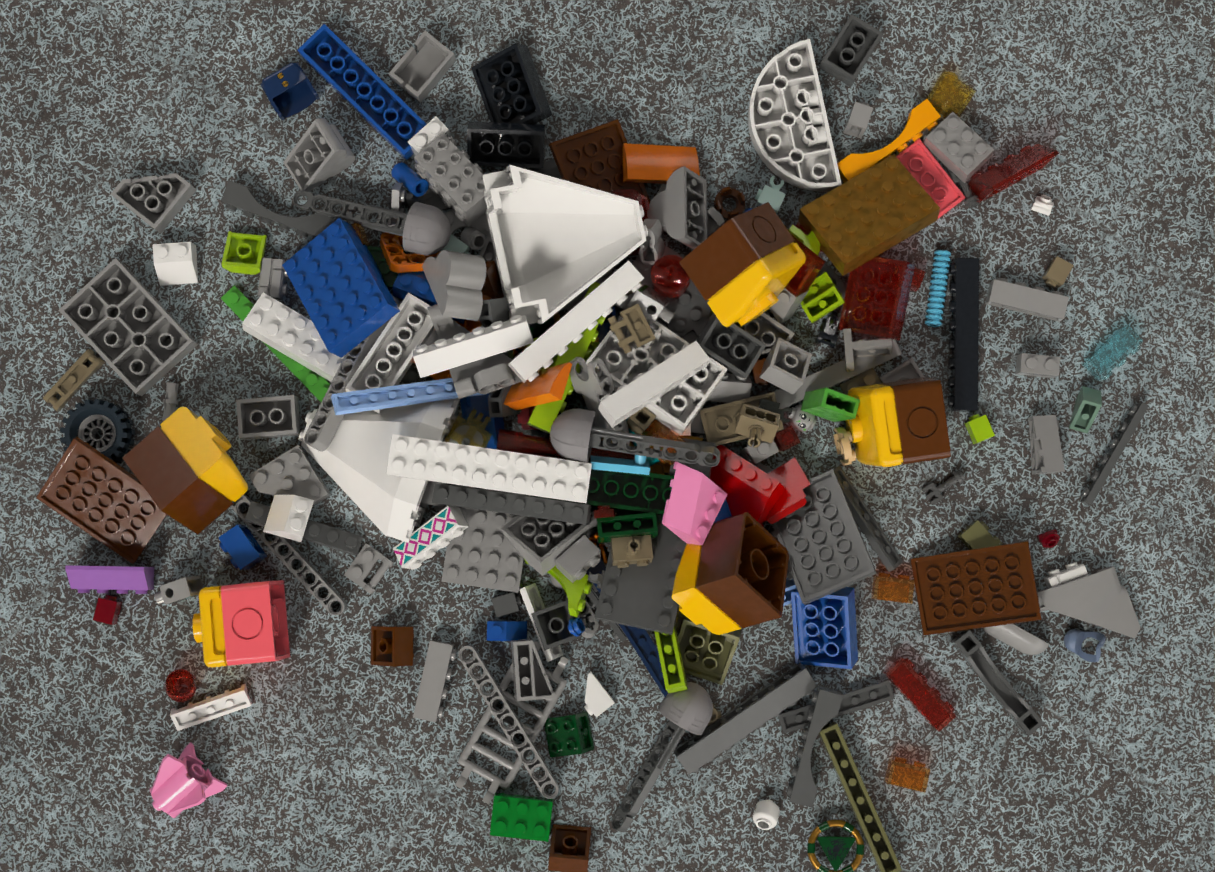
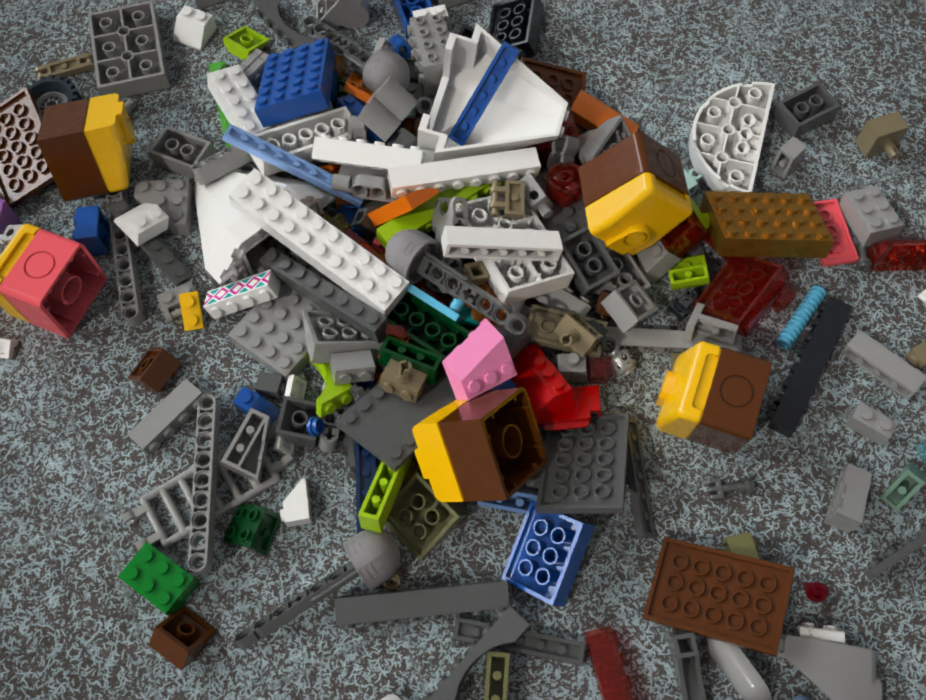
camera: 30 degrees right, 20 degrees down
(389, 573) = (191, 311): none -> yellow plate
(549, 226) = (484, 93): none -> blue plate
(830, 405) = (654, 353): bright green brick -> none
(842, 443) = (648, 400): tan plate -> none
(892, 589) = (633, 555): clear orange brick -> none
(920, 118) = (843, 182): light orange arch -> none
(936, 48) = (882, 135): none -> dark tan brick
(950, 95) = (878, 174): clear yellow slope -> none
(979, 428) = (788, 452): lime brick -> none

